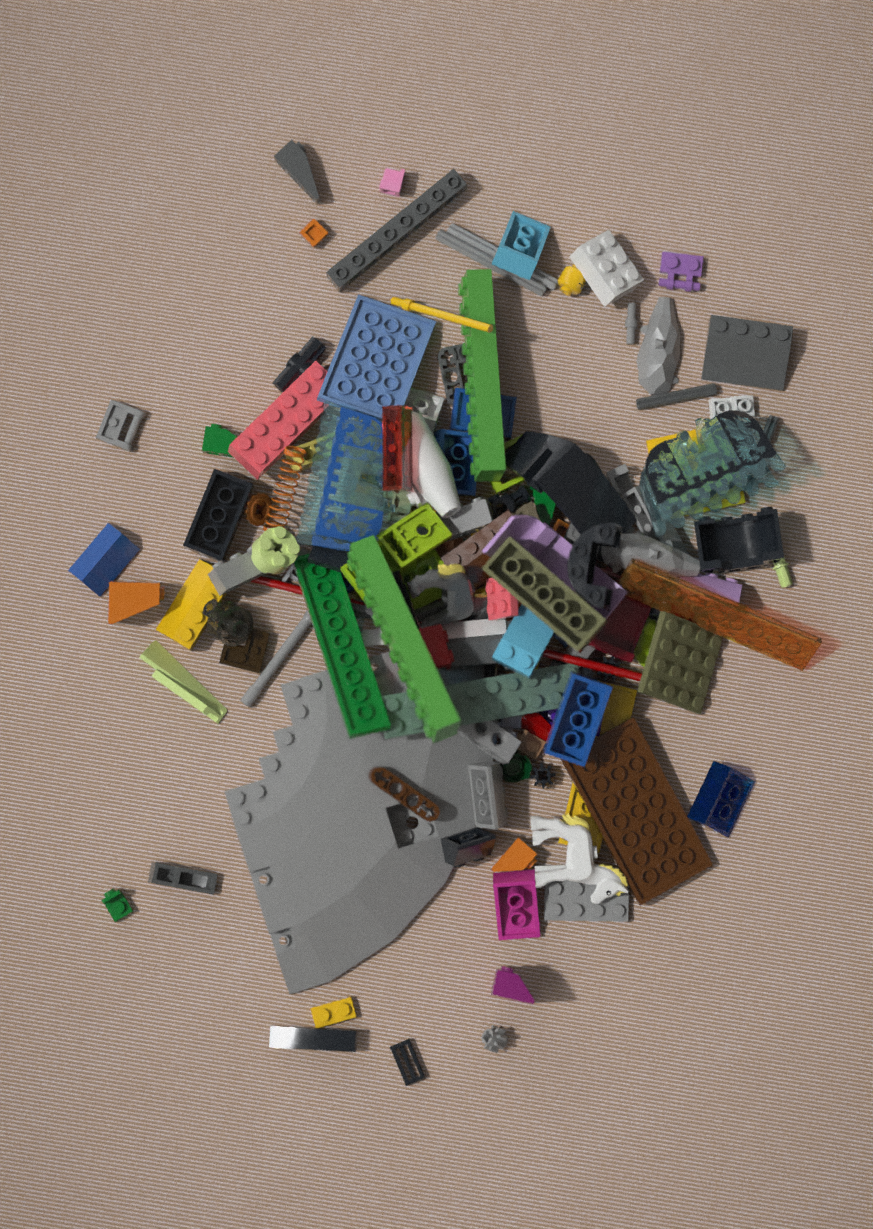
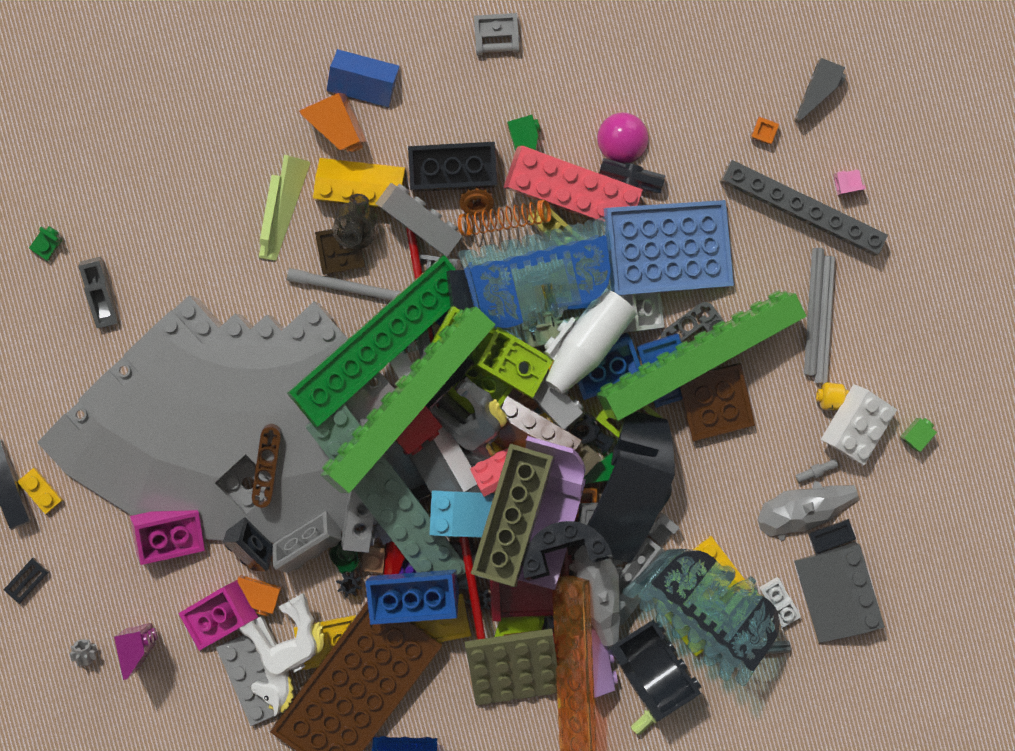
camera: 65 degrees right, 5 degrees up
(262, 358) = (622, 138): none -> dark pink piece
(274, 550) = (449, 244): yellowish green brick -> none
(397, 448) = (589, 308): clear red brick -> none
(410, 305) = (737, 255): yellow bar -> none
(424, 916) = (166, 535): none -> dark pink slope
(521, 245) = (843, 333): medium azure slope -> none
(531, 382) = (717, 402): none -> reddish brown plate
(639, 221) = (919, 434): none -> bright green brick
(676, 396) = (766, 545): dark grey axle -> none
(680, 265) = (894, 491): medium lavender plate -> none
(694, 336) = (831, 536): none -> black tile

